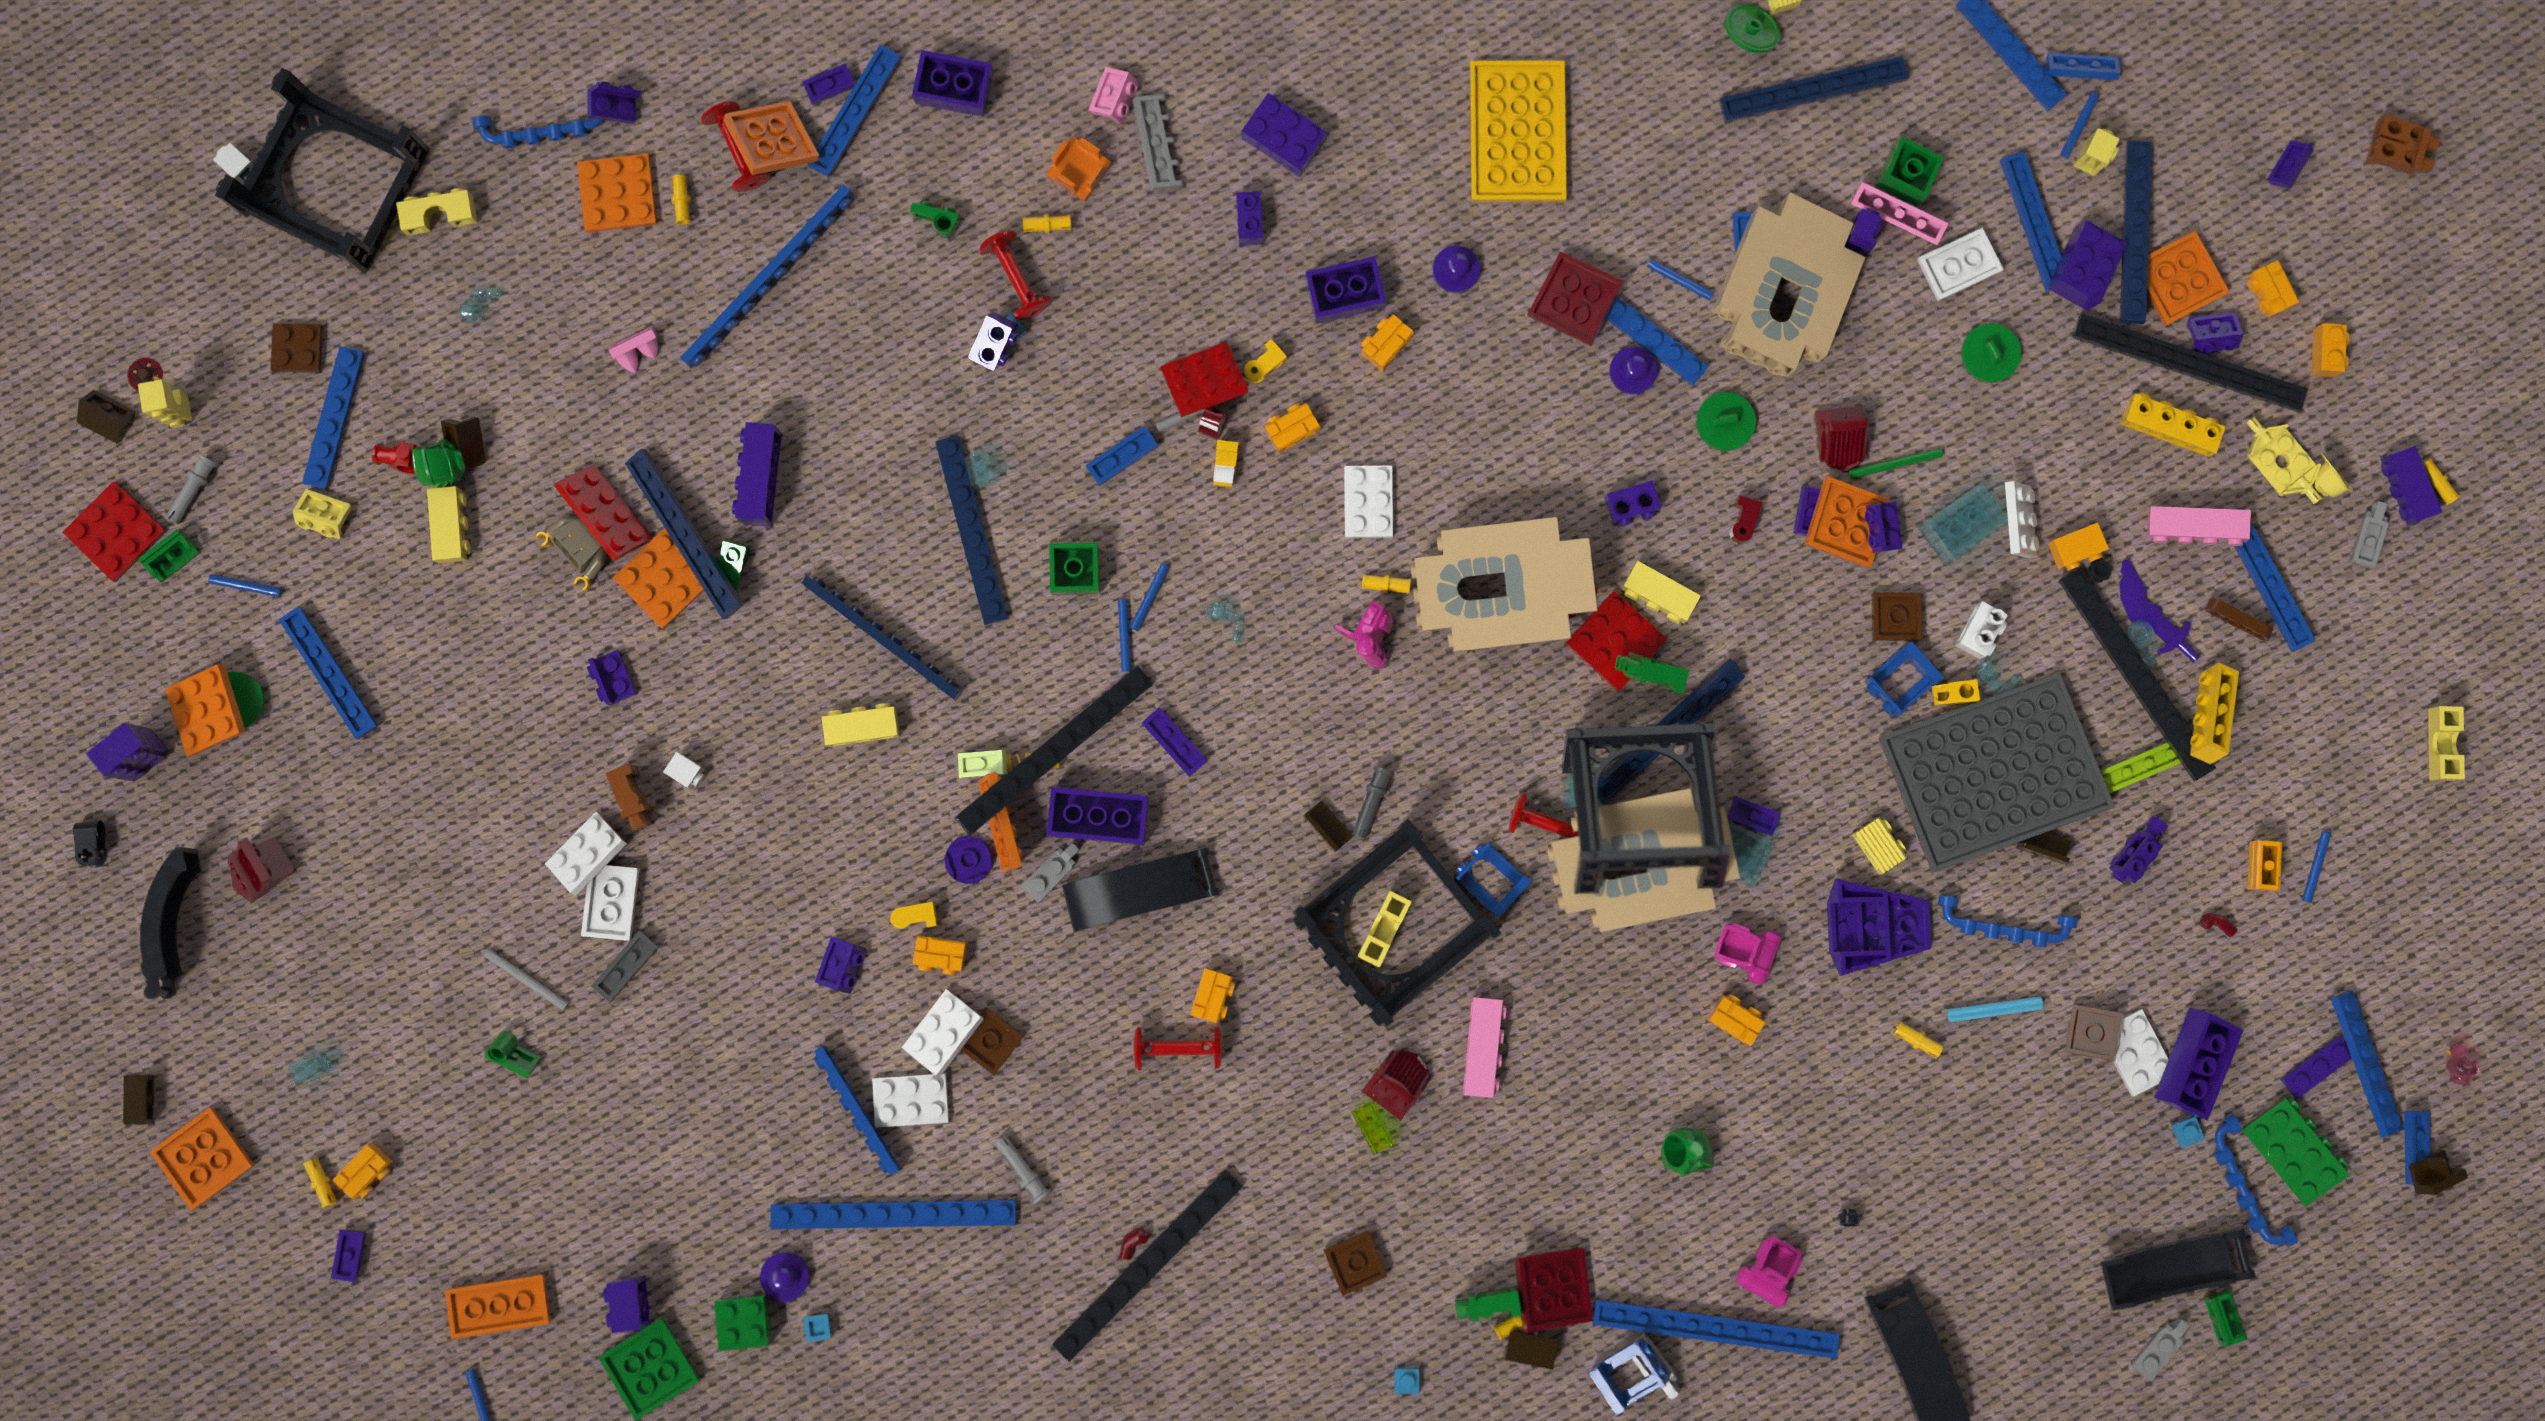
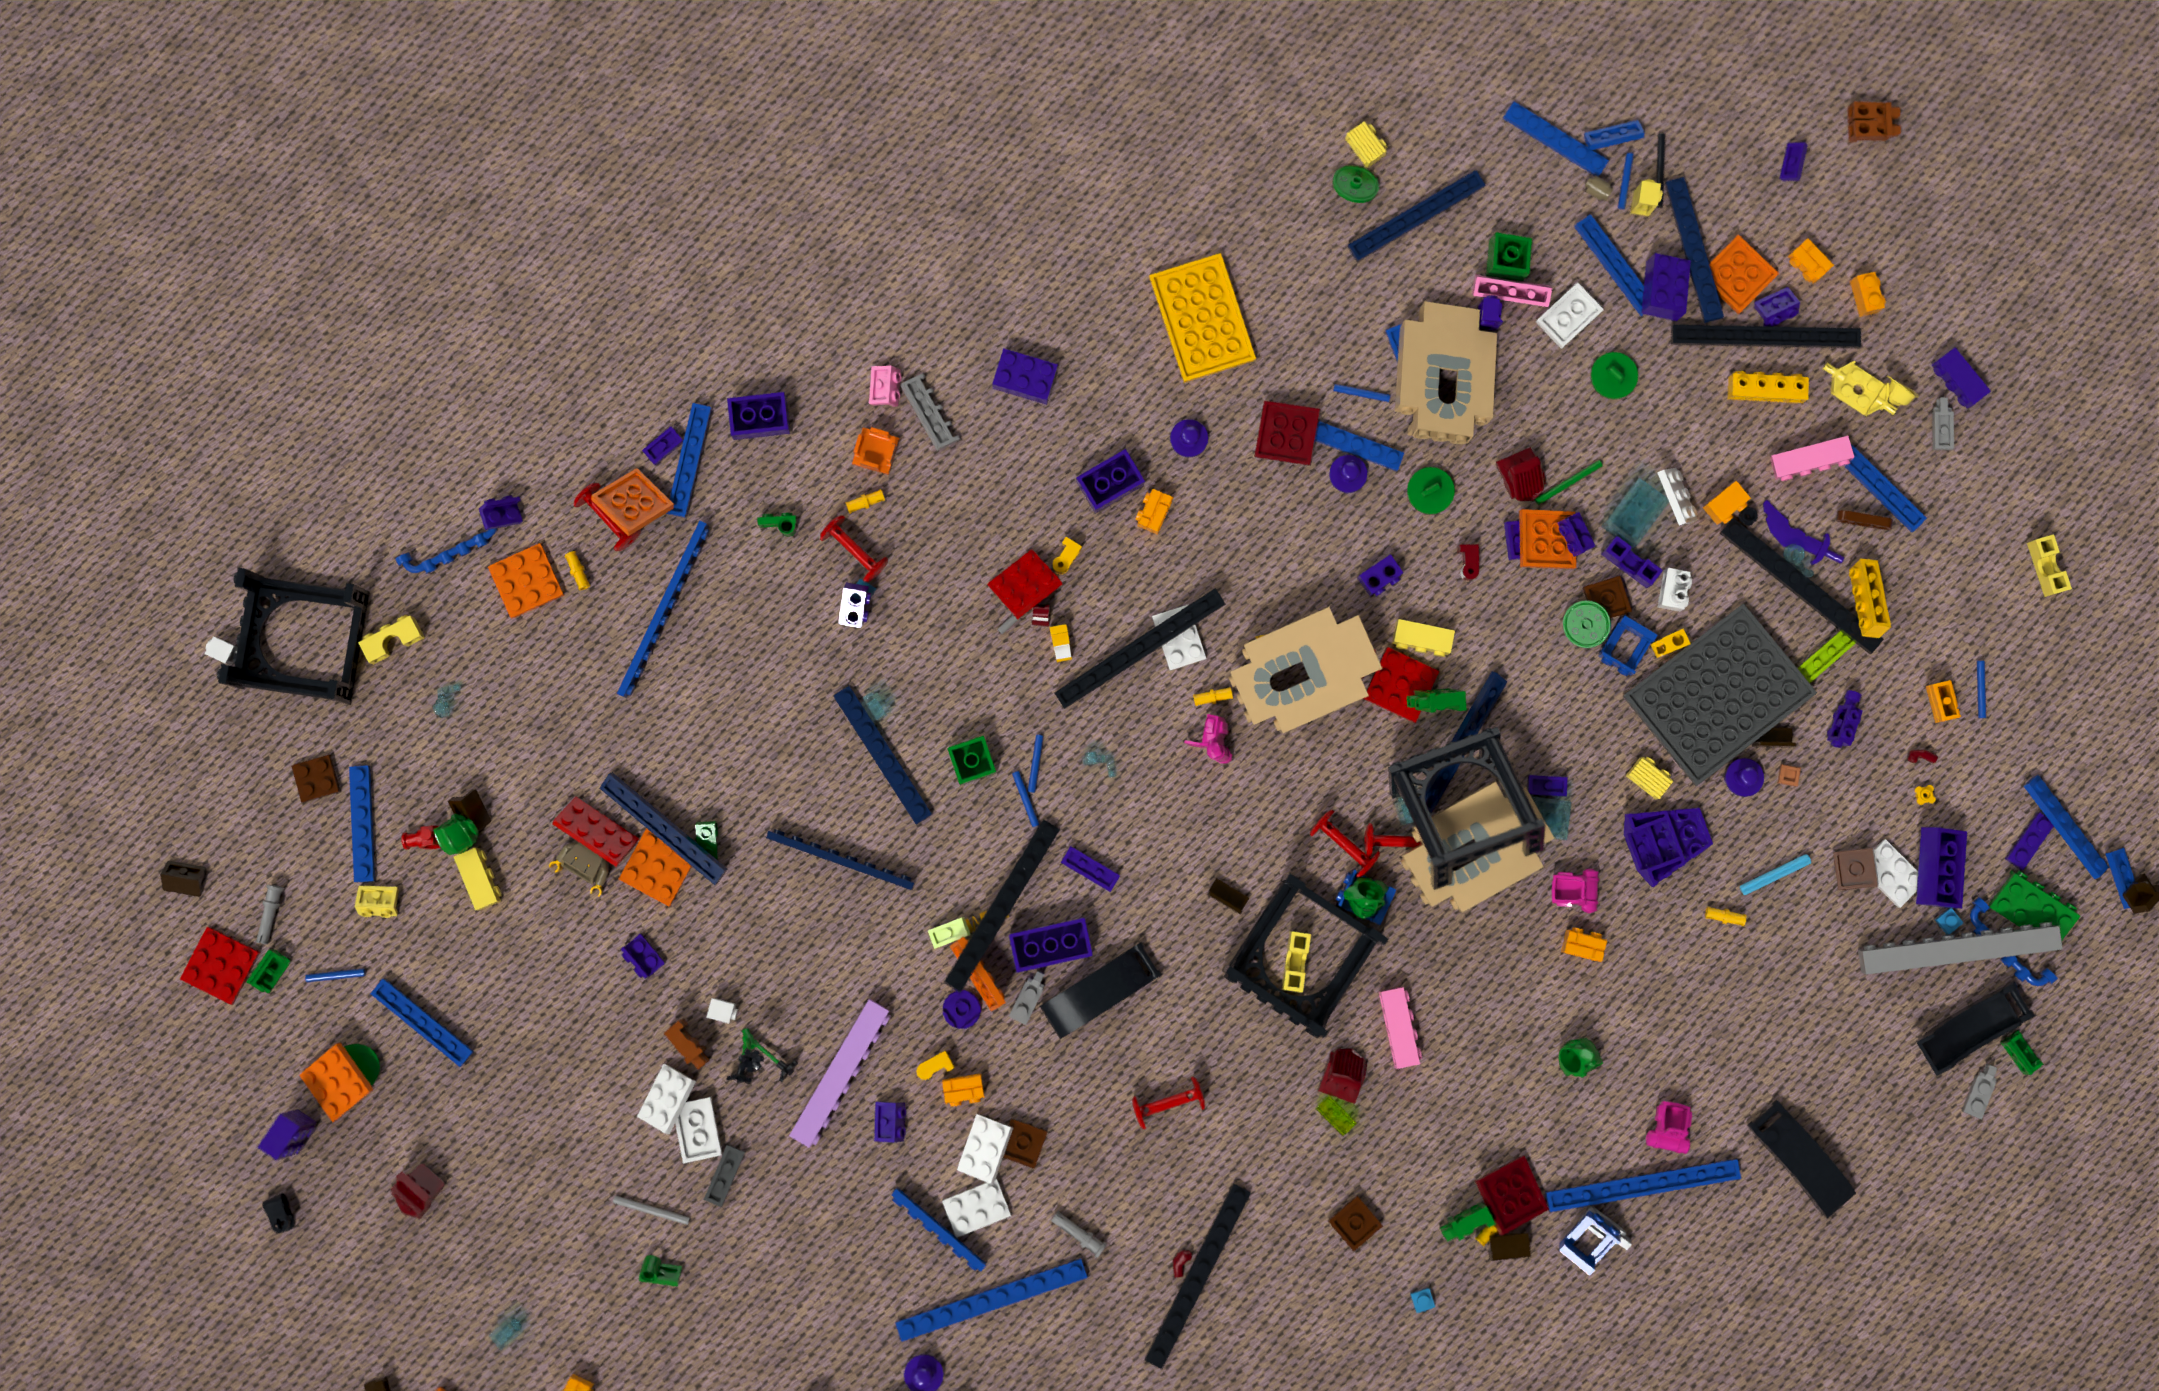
camera: 20 degrees left, 0 degrees up
(144, 371) = (204, 836): piece -> none
(160, 920) = (354, 1256): black windscreen -> none
(164, 403) = (229, 855): light yellow arch -> none
(625, 350) = (571, 699): bright pink tile -> none
(699, 836) = (752, 1059): none -> black plant
(757, 474) = (706, 765): dark purple brick -> none
(799, 888) = (839, 1073): none -> lavender brick
(860, 725) = (846, 932): light yellow brick -> none
(1122, 456) = (979, 662): blue plate -> none
(1212, 996) = (1181, 1054): light orange brick -> none
(1249, 218) = (1019, 449): dark purple brick -> none
(1292, 427) = (1102, 599): light orange brick -> none
(1317, 499) = (1140, 648): none -> black plate
(1375, 790) = (1256, 857): dark grey pin -> none
(1487, 807) = (1347, 845): none -> red hose
(1492, 878) = (1366, 896): none -> green piece
(1849, 1218) = (1716, 1068): black plate -> none
(1862, 638) = (1587, 624): none -> shield
(1947, 593) = (1641, 570): none -> dark purple arch
(1987, 673) = (1689, 621): clear light blue plate -> none
(1994, 881) = (1744, 777): none -> dark purple plate
(2014, 934) = (1772, 812): blue bar -> none
(2044, 123) = (1598, 188): none -> dark tan brick
(2049, 896) = (1789, 775): none -> nougat tile
(2127, 121) = (1660, 164): none -> black bar
(2189, 1168) = (1960, 949): none -> light grey brick
(2201, 966) = (1920, 794): none -> yellow plate
(2440, 482) = (1981, 369): yellow pin -> none
(2460, 1069) = (2136, 808): clear pink animal -> none

